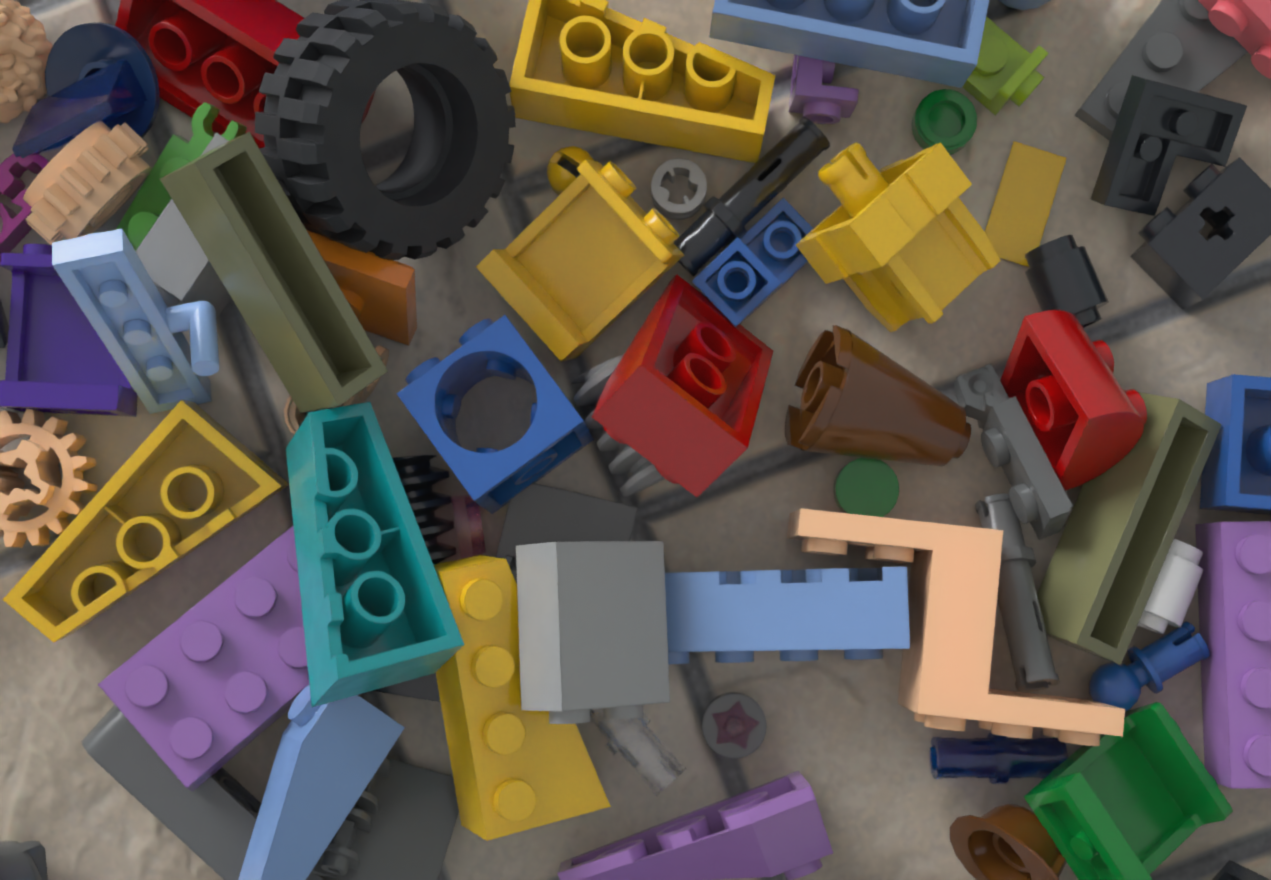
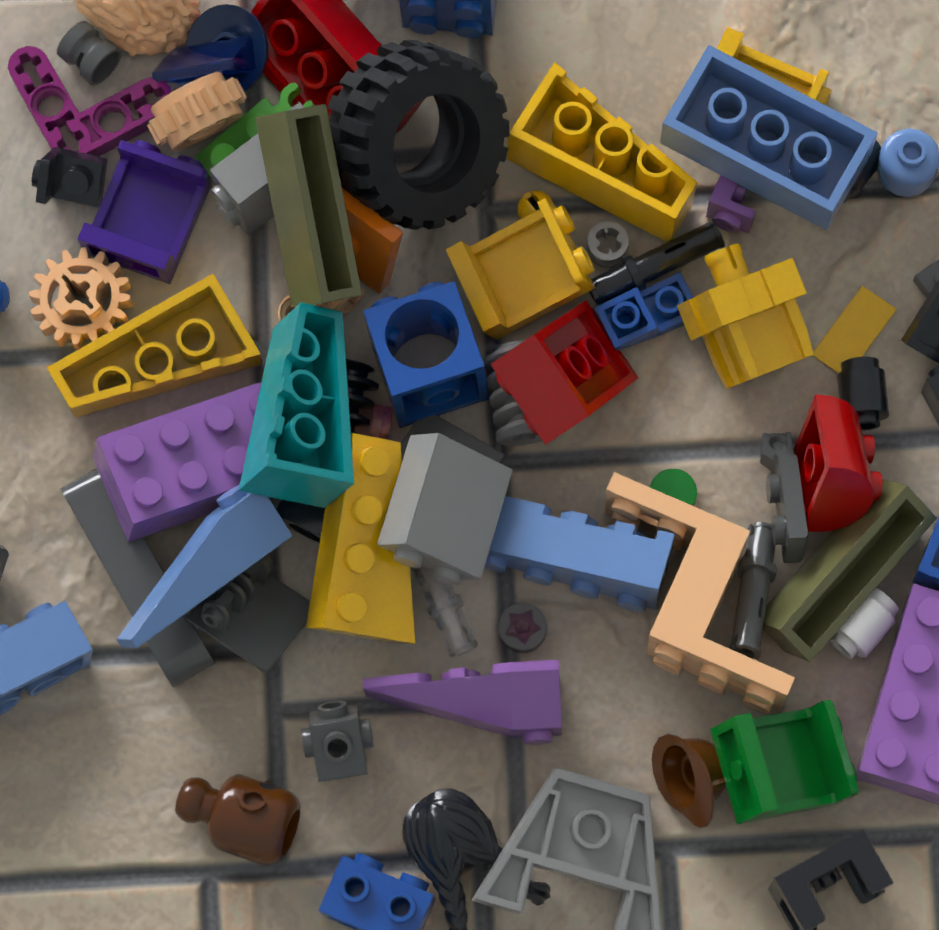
camera: 20 degrees right, 10 degrees down
(137, 324) = (204, 211): light blue plate -> none
(871, 407) = (695, 434): reddish brown cone -> none
(944, 118) = (815, 256): green tile -> none
(995, 757) = (696, 706): clear blue pin -> none
(1003, 70) = (864, 228): lime bracket -> none
(1150, 666) = (838, 680): blue pin -> none

